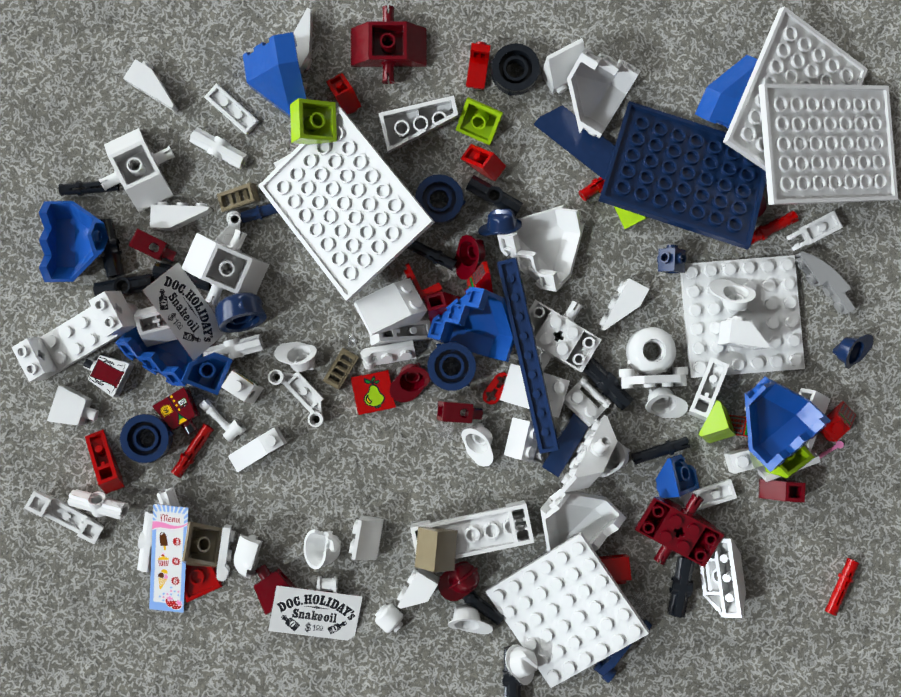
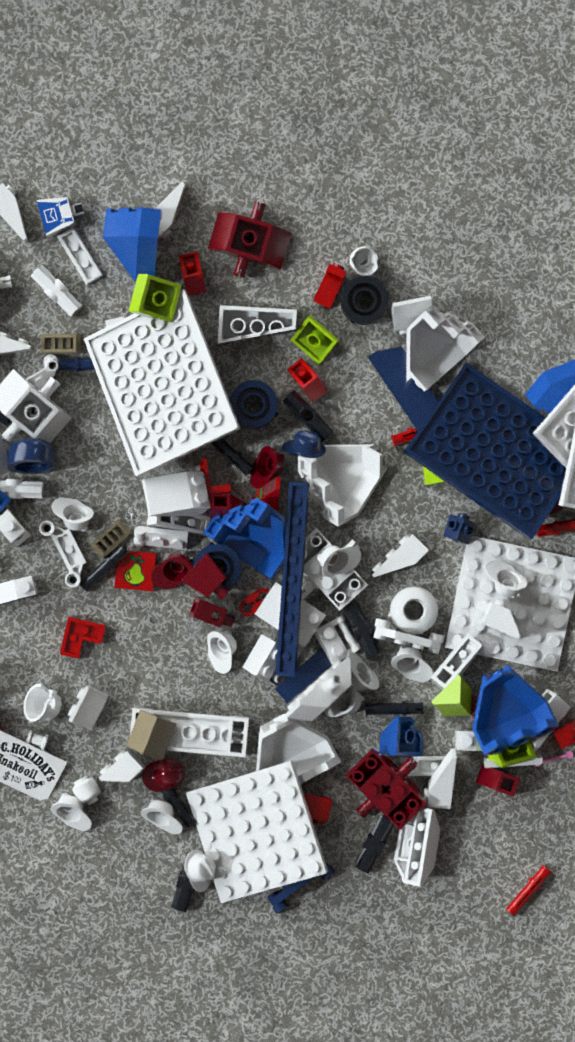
camera: 20 degrees right, 0 degrees up
(198, 75) = (58, 214): none -> torso
(335, 466) = (76, 632): none -> red plate
(346, 392) = (100, 571): none -> black pin
(380, 643) = (70, 811): none -> white piece
(445, 379) = (207, 578): none -> dark red torso
(502, 27) = (361, 254): none -> white hair
(567, 323) = (339, 560): none -> white piece
(623, 428) = (362, 675): none -> white piece
(729, 509) = (440, 785): none -> white slope

